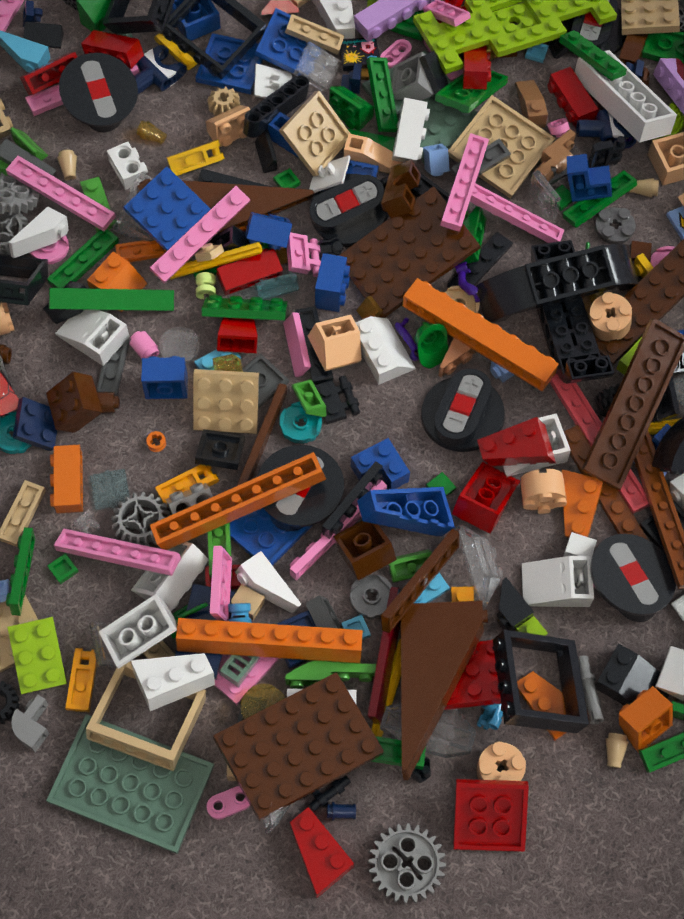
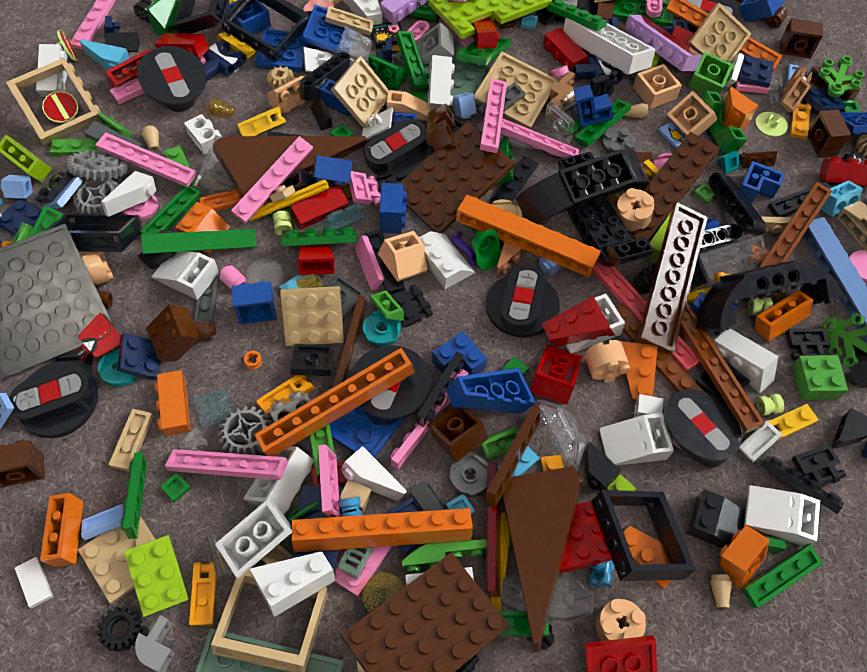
camera: 10 degrees left, 5 degrees down
(166, 208) = (240, 160): blue plate -> none
(369, 308) = (427, 225): pearl gold tile -> none
(433, 71) = (451, 37): black tile -> none
(468, 288) = (512, 200): dark purple piece -> none
(532, 102) = (533, 56): medium nougat slope -> none
(590, 693) = (689, 541): light grey pin -> none

